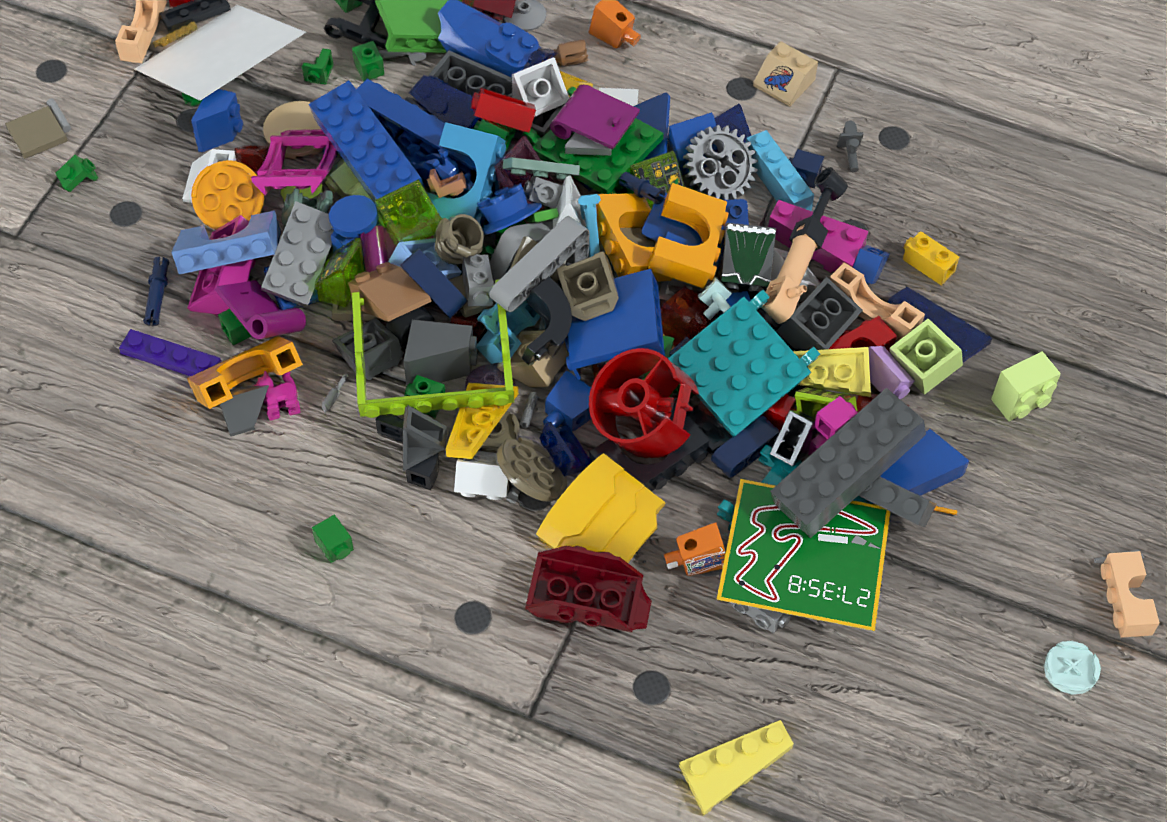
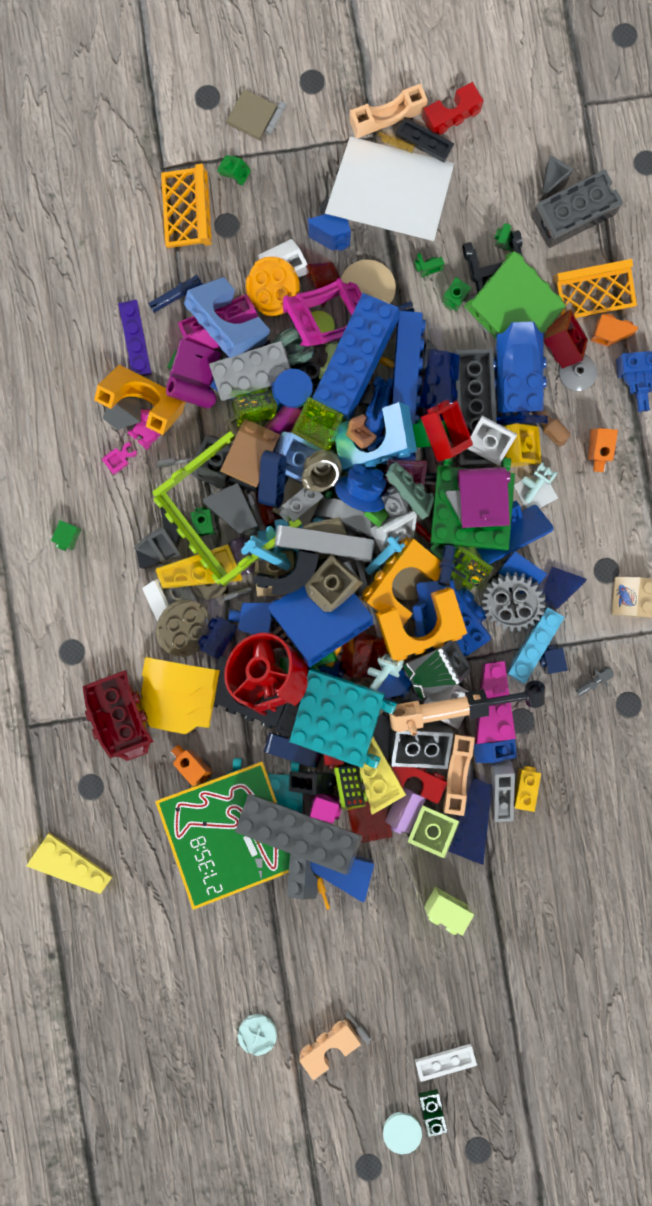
camera: 60 degrees right, 30 degrees up
(81, 214) = (202, 210): none -> light orange fence
(288, 441) = (117, 460): none -> dark pink plate
(498, 329) = (255, 547): none -> medium azure piece
(608, 83) = (535, 485): none -> light aqua arm
(909, 270) = (503, 790): none -> light grey slope

